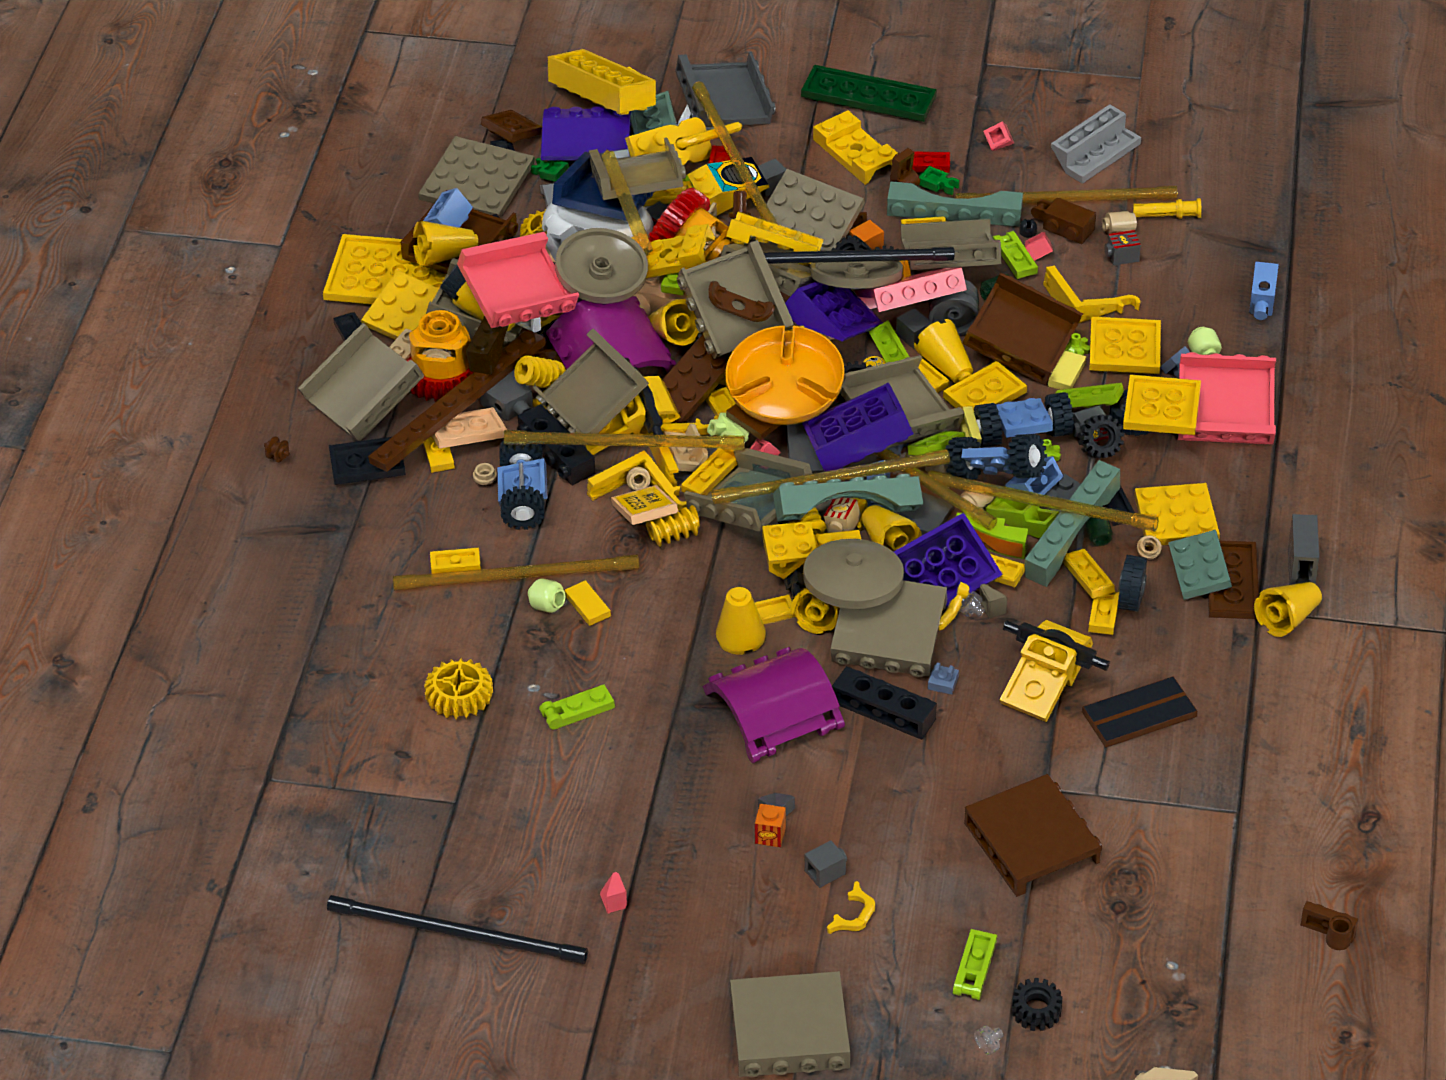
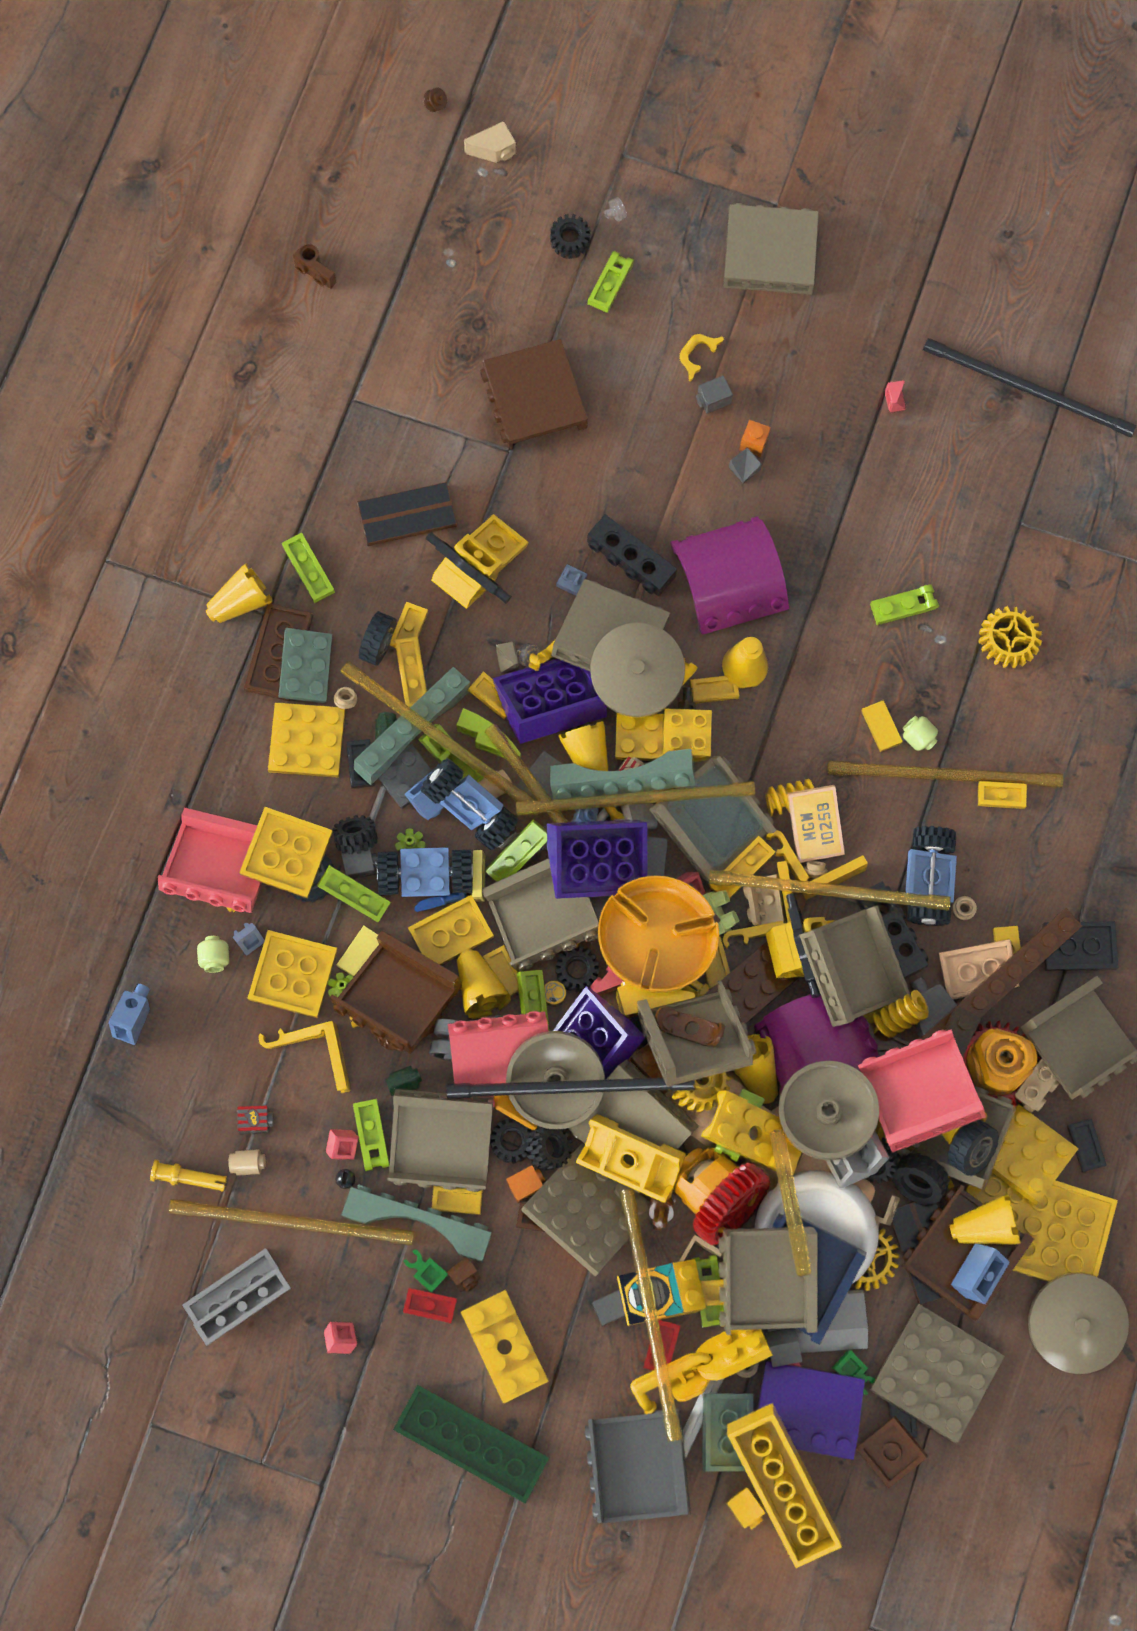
camera: 175 degrees left, 30 degrees up
(354, 217) = (1078, 1323): none -> dark tan dish
(1065, 219) = (303, 1177): reddish brown brick -> none
(1228, 646) = (308, 567): none -> lime plate
(1303, 549) = (208, 649): dark grey brick -> none

